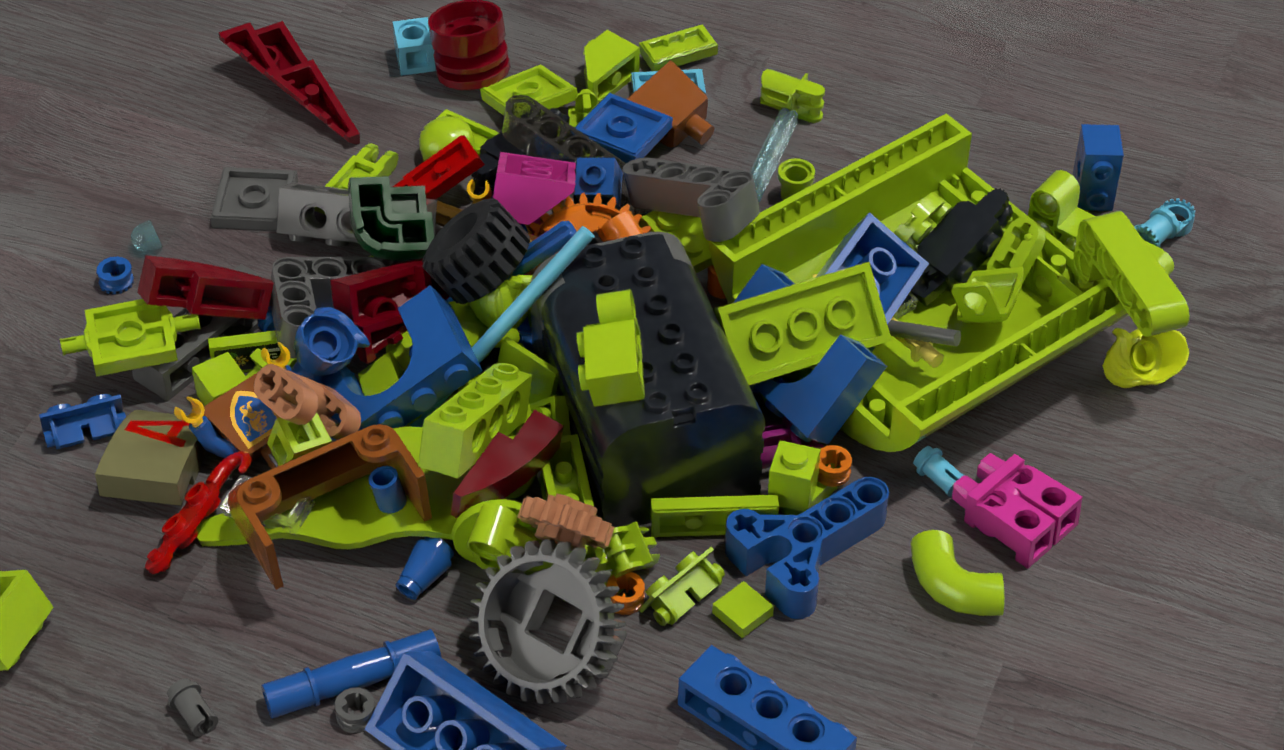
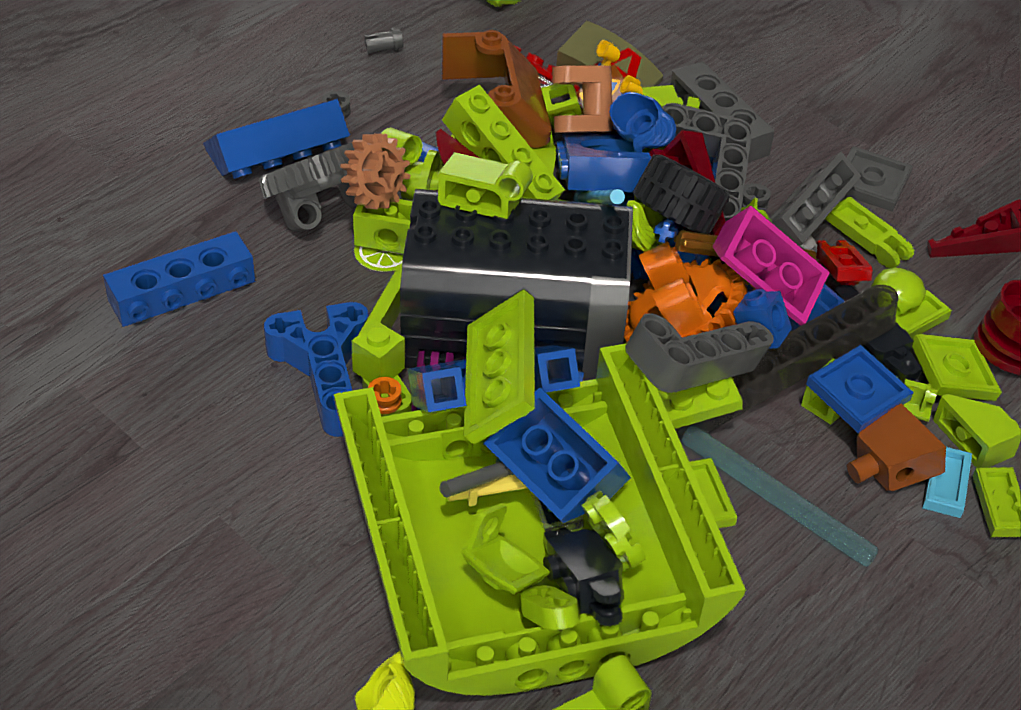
camera: 110 degrees right, 0 degrees up
(66, 420) = (659, 46): blue hinge -> none
(117, 283) = (809, 97): blue bush -> none
(129, 336) = (709, 54): lime plate -> none
(145, 237) = (841, 116): clear light blue hinge -> none
(204, 288) = (731, 75): dark red slope -> none
(353, 671) = (363, 102): blue piece -> none
(388, 219) = (762, 176): dark green brick -> none
(628, 581) = (353, 250): orange bush -> none
(630, 550) = (372, 251): lime arm -> none
(669, 596) = (326, 269): lime hinge -> none
(742, 609) = (293, 302): lime tile -> none
(792, 93) = (896, 562): lime arm -> none
(795, 176) = (760, 513): lime piece -> none
(934, 466) = (339, 480): medium azure pin -> none
(950, 583) = (228, 430): lime cylinder -> none
(1018, 506) = (274, 507): dark pink hips -> none
(1114, 251) = (424, 621): lime beam -> none

